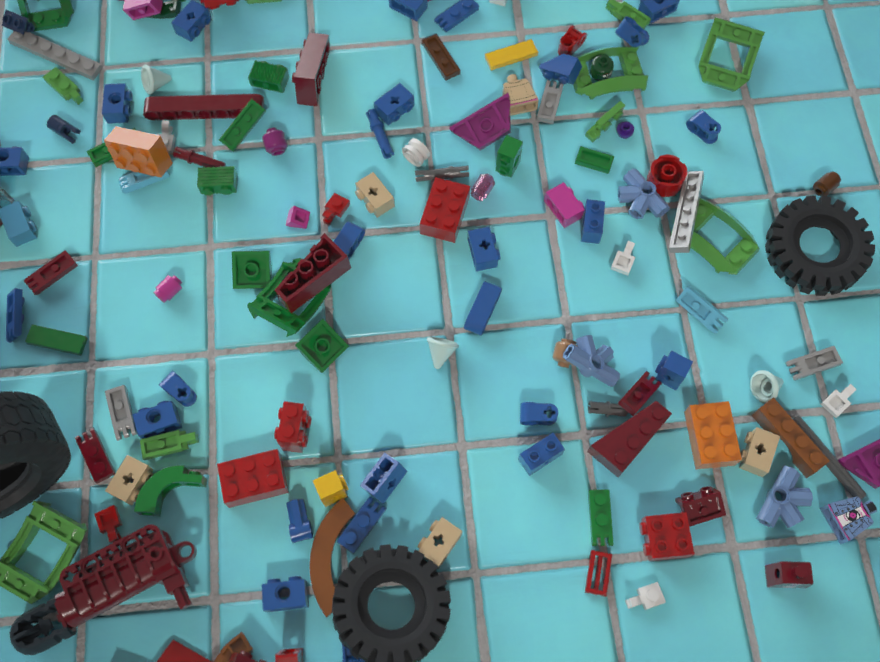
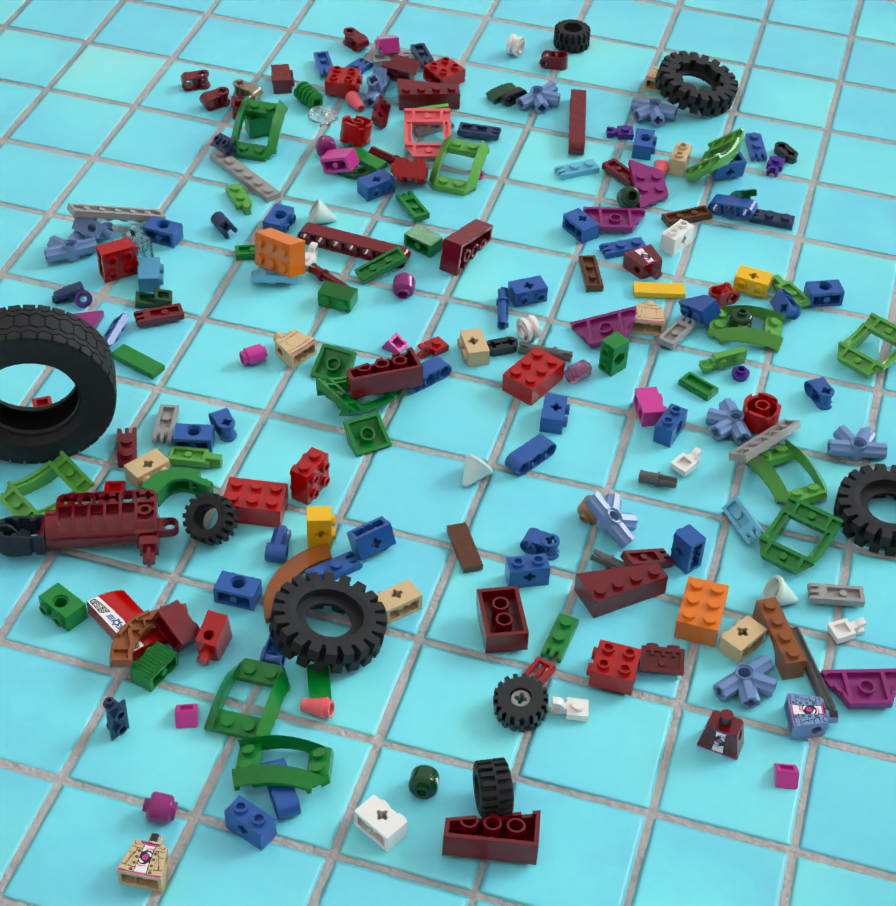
camera: 20 degrees right, 25 degrees down
(37, 252) = (151, 300): none -> dark green slope
(203, 262) = (294, 347): none -> tan torso
(215, 539) = (195, 515): none -> black tyre
(239, 34) = (412, 206): none -> green hinge
(398, 182) = (502, 346): none -> black beam
(470, 445) = (464, 547): none -> reddish brown tile
(485, 27) = (643, 262): none -> dark red torso
(545, 526) = (502, 619): none -> dark red brick
(591, 13) = (753, 281): none -> yellow brick
(591, 607) = (520, 715): none -> black bush
(606, 290) = (657, 479): none -> dark grey axle
(760, 179) = (856, 446): none -> medium blue piece
(765, 286) = (807, 515): none -> green wedge
(855, 588) = (786, 776): none -> dark pink slope

